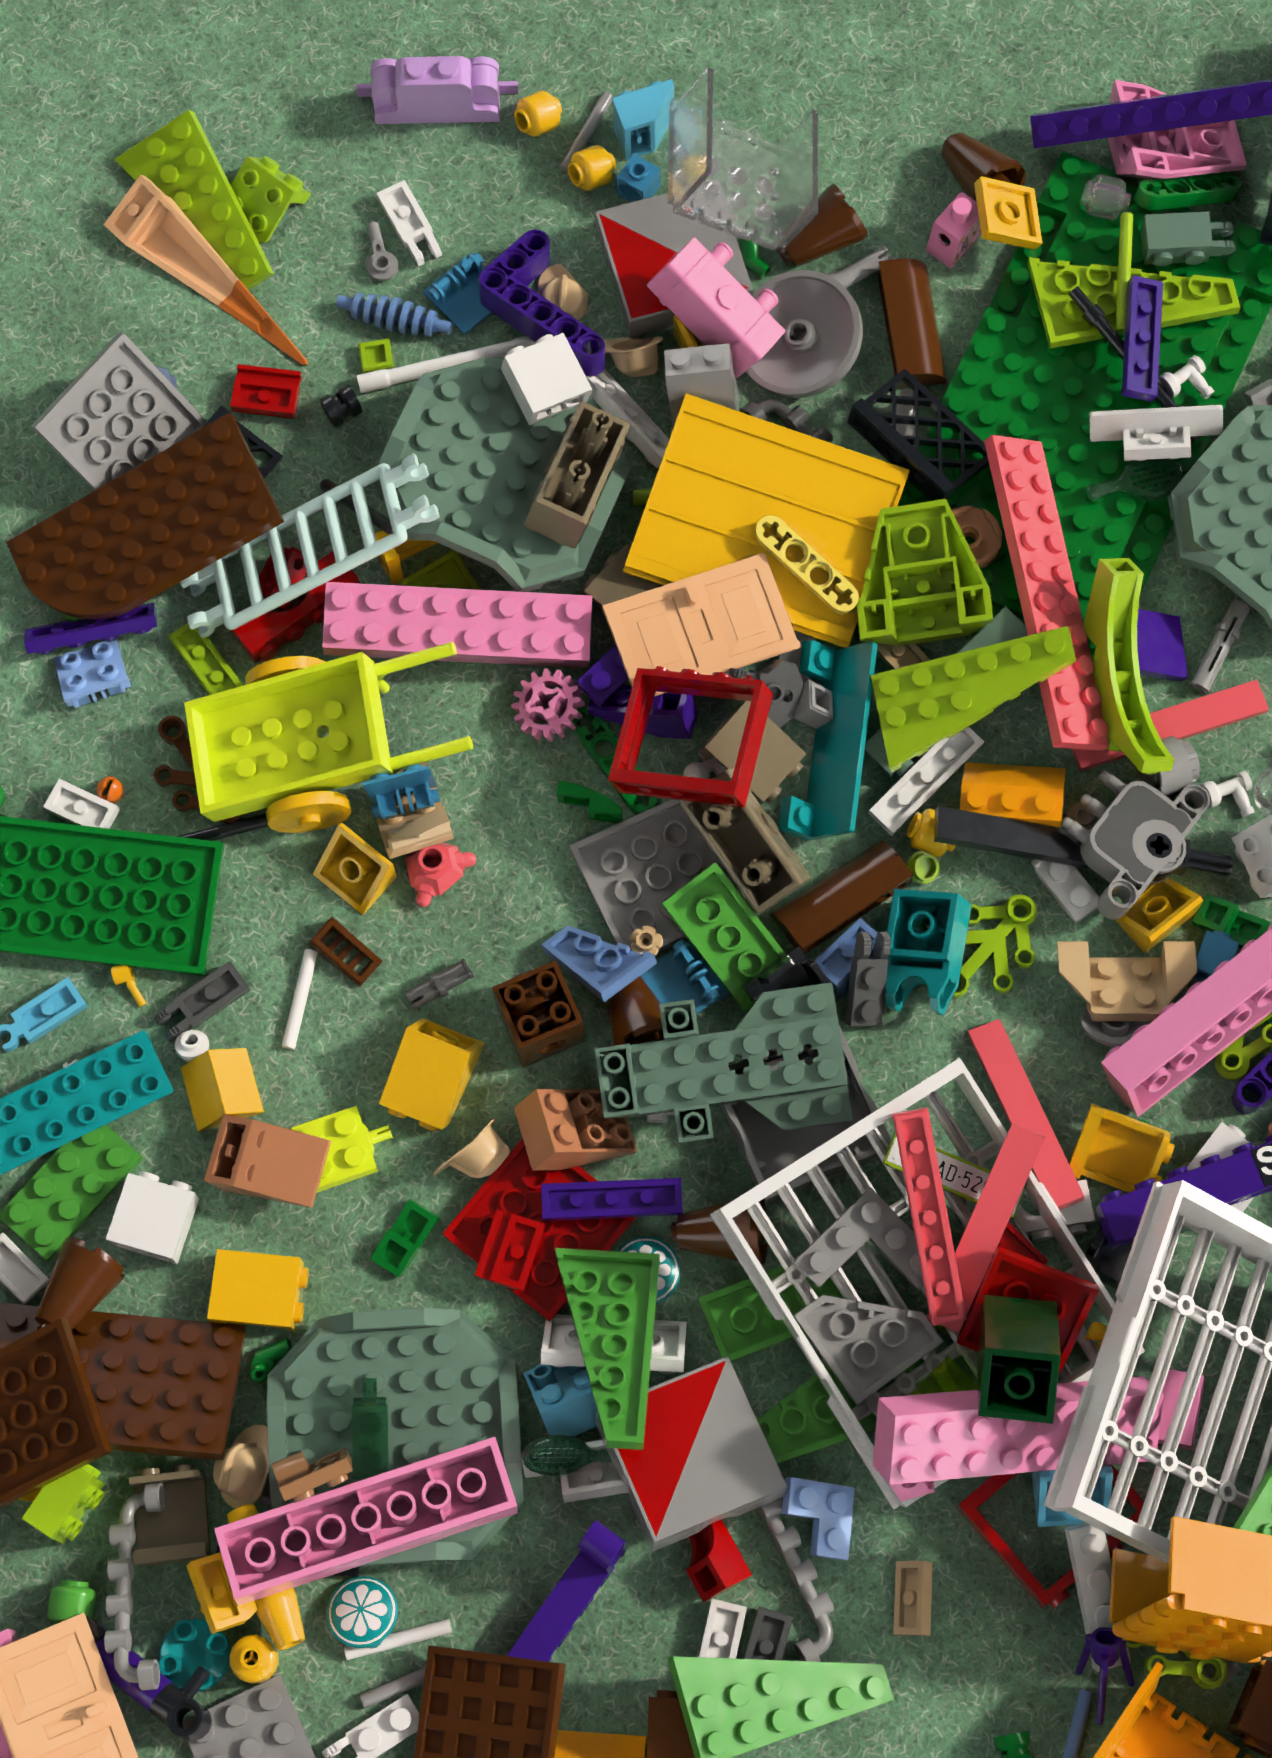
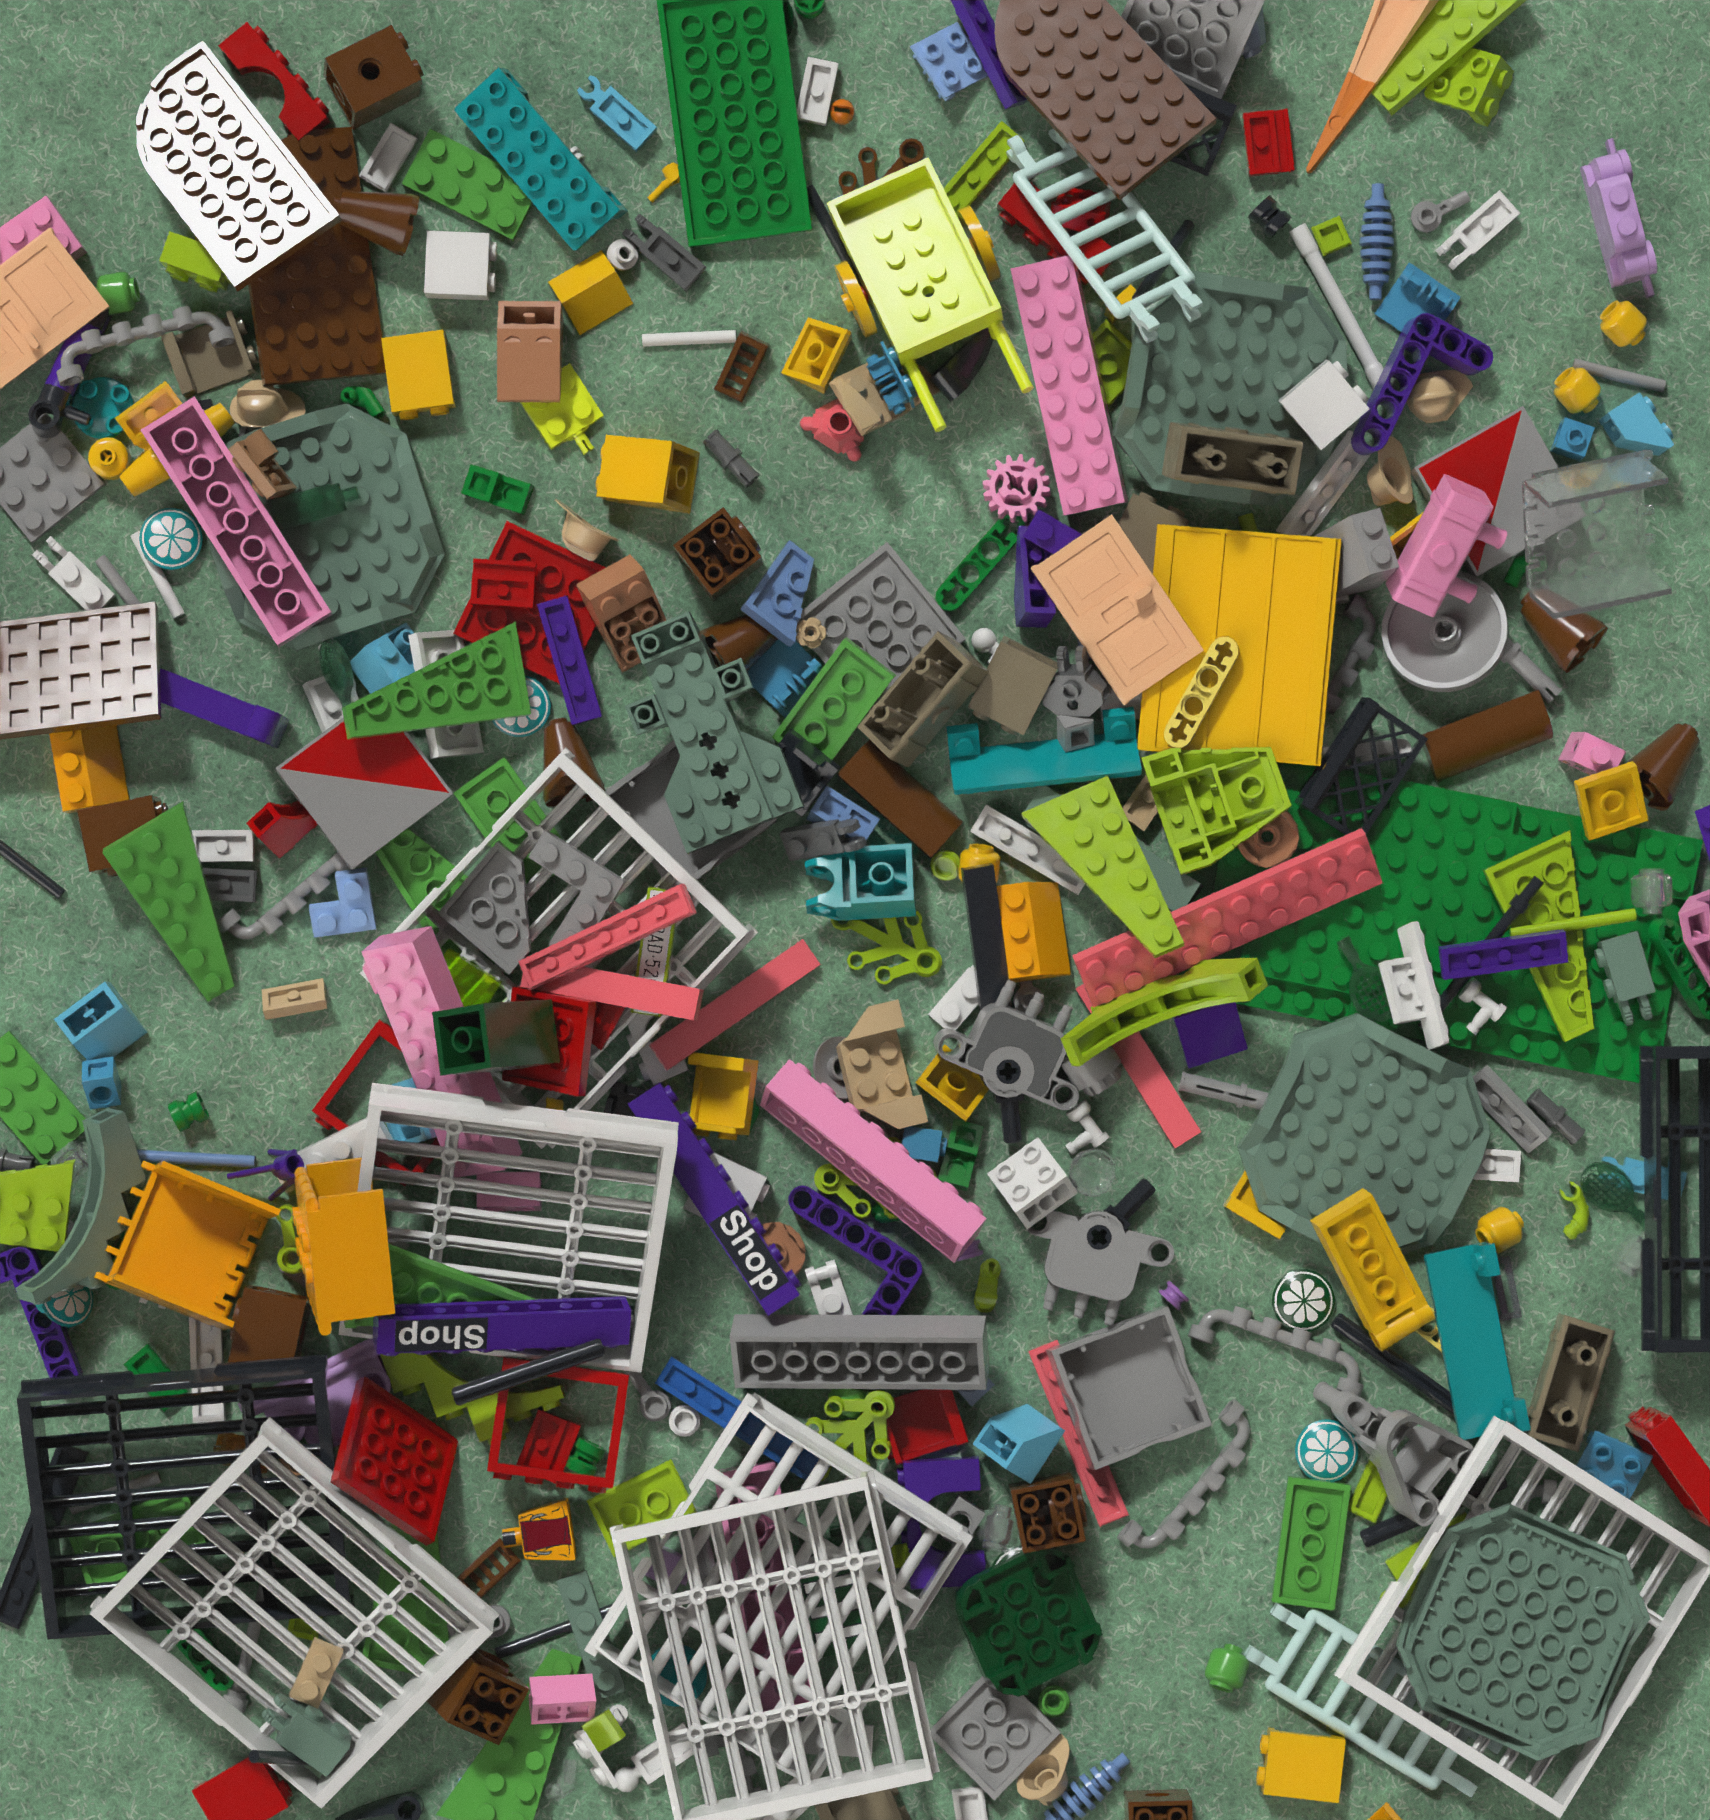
camera: 70 degrees right, 15 degrees up
(405, 729) = (963, 365): none -> black piece
(599, 806) = (931, 557): green slope -> none
(689, 682) = (999, 572): red window -> none

